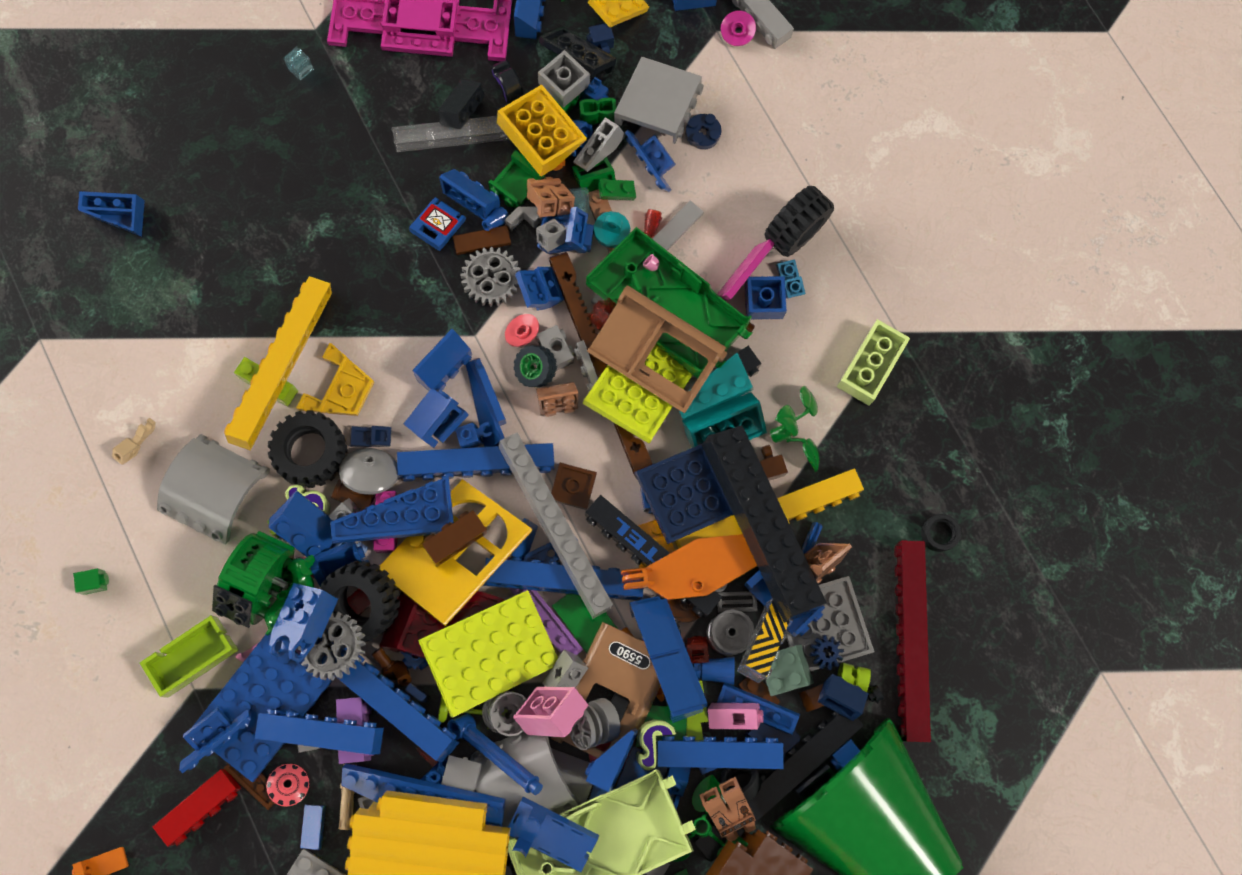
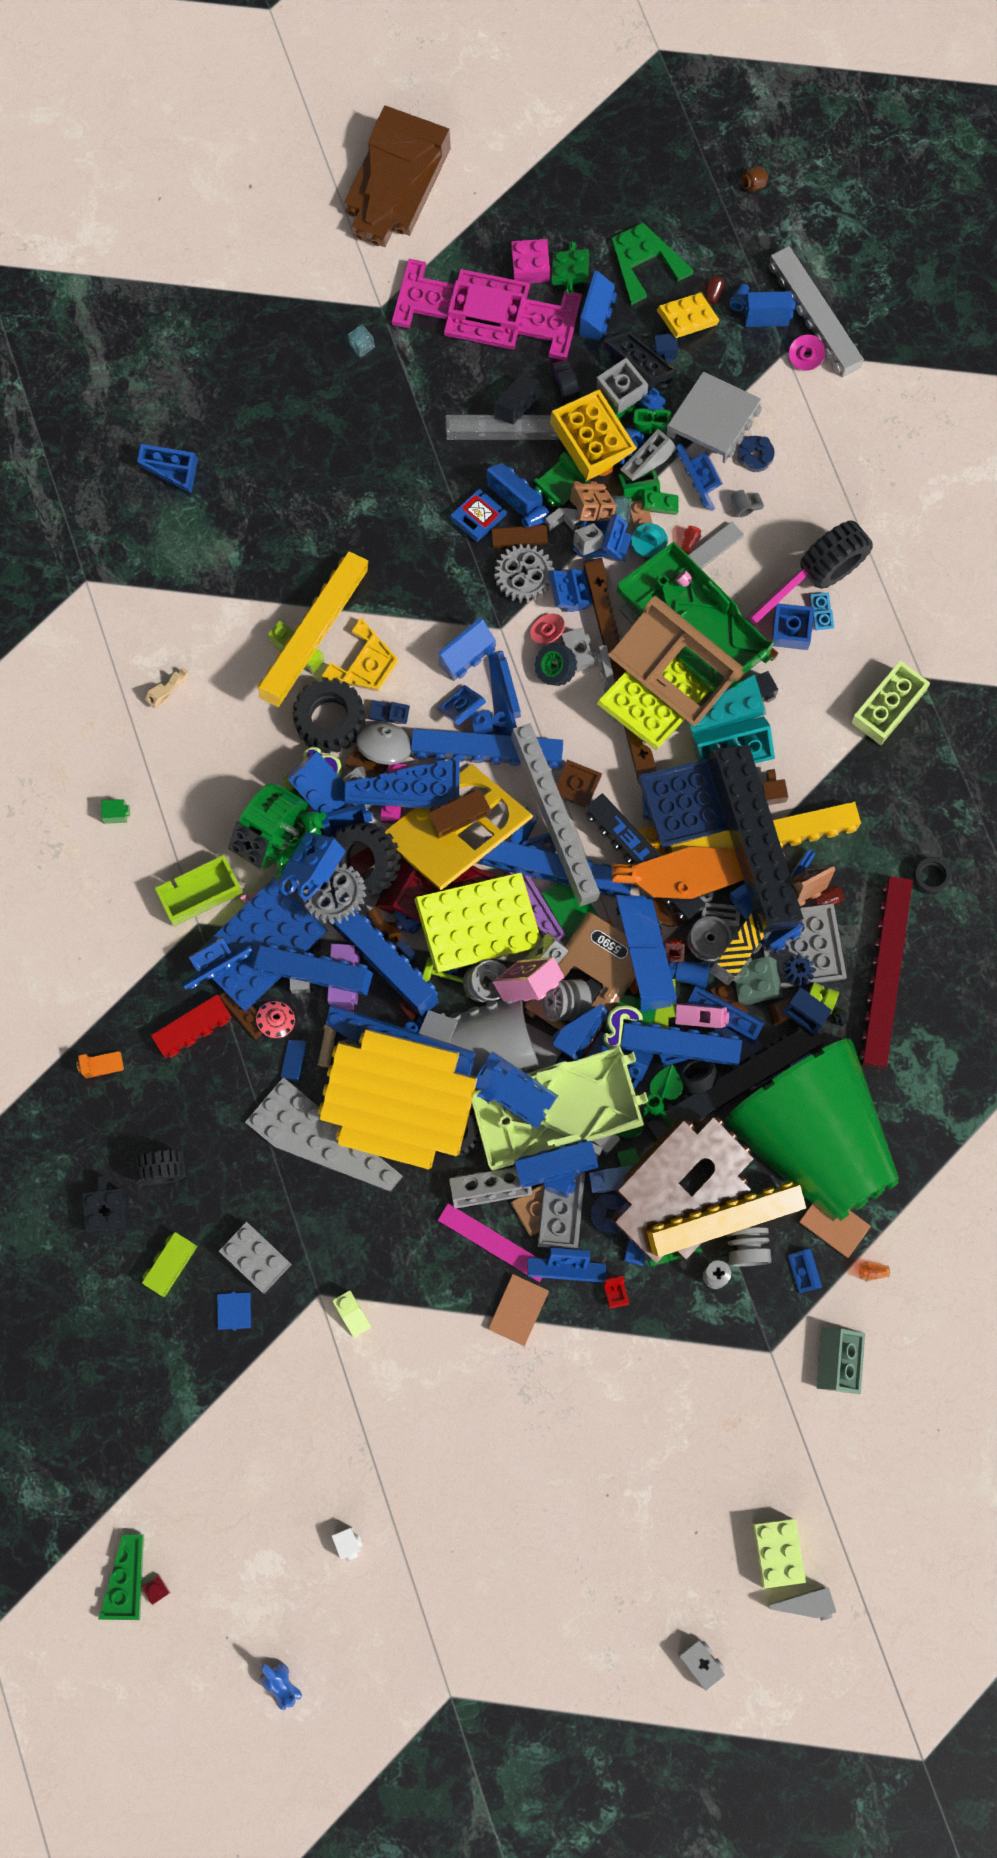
camera: 20 degrees right, 0 degrees up
(207, 487) = (231, 739): light grey hinge -> none
(430, 415) = (449, 698): blue panel -> none
(465, 728) = (447, 992): blue piece -> none
(557, 399) = (573, 699): nougat slope -> none
(601, 312) = (627, 620): clear red brick -> none
(698, 182) = (743, 504): none -> dark grey piece
(731, 816) = (683, 1100): nougat hips -> none
(790, 428) = (793, 743): green plant -> none
(846, 568) = (831, 896): none -> clear red cone

